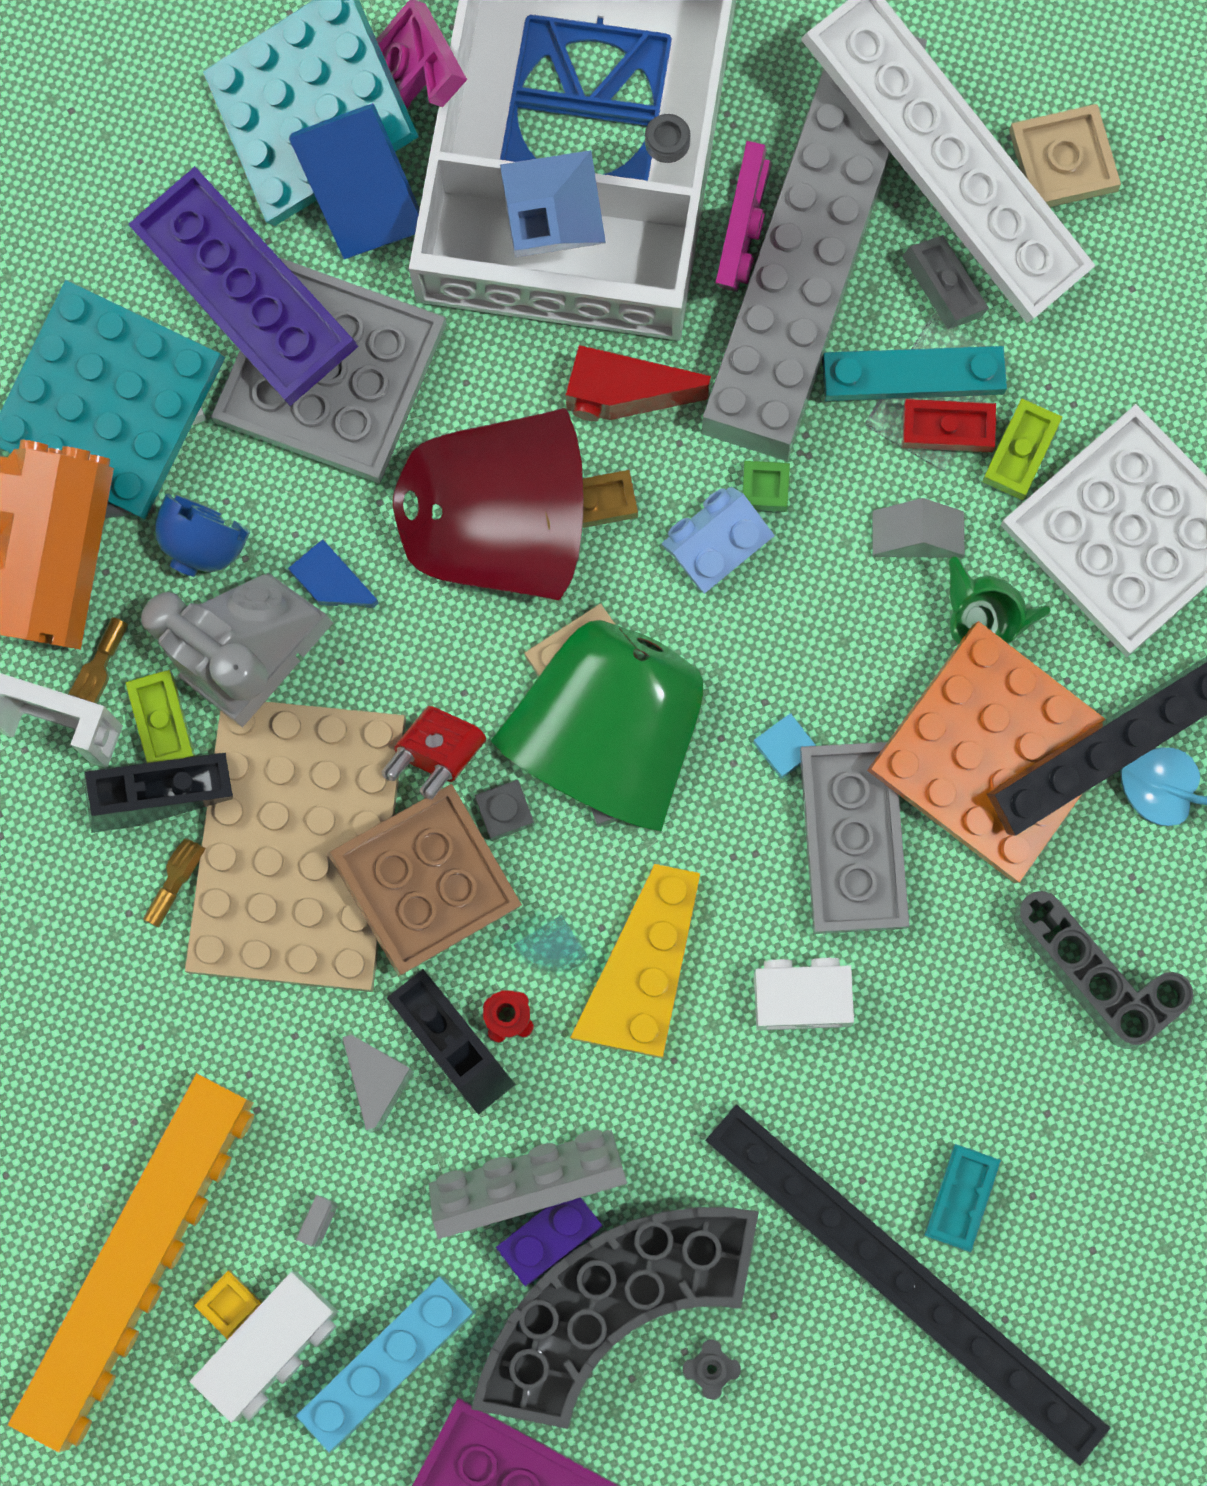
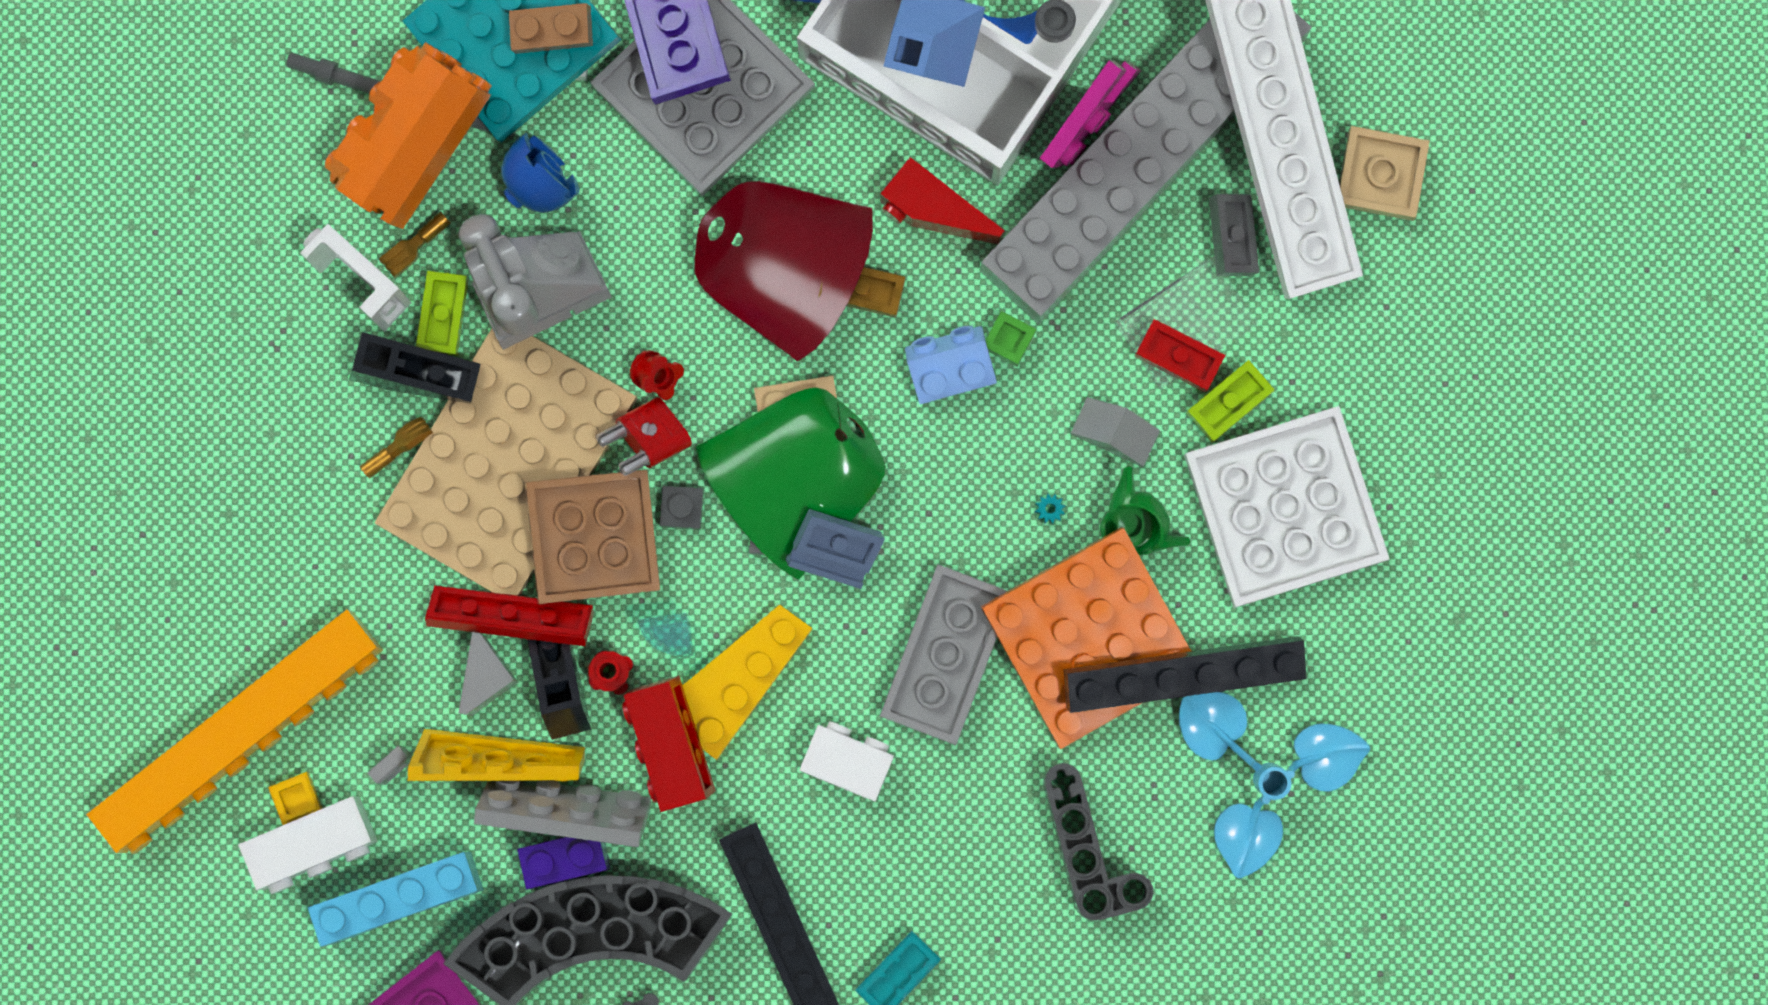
camera: 20 degrees right, 5 degrees up
(146, 374) = (550, 28): none -> medium nougat plate
(330, 579) = (627, 258): blue tile -> none
(373, 1003) = (509, 615): none -> red tile
(410, 1168) = (489, 758): none -> yellow wing
(415, 681) = (655, 374): none -> red brick
(605, 1062) = (668, 744): none -> red brick
(687, 778) = (835, 548): none -> sand blue plate
(782, 745) = (925, 554): medium azure tile -> none
(885, 649) = (1050, 516): none -> teal piece
(914, 373) = (1173, 299): teal plate -> none

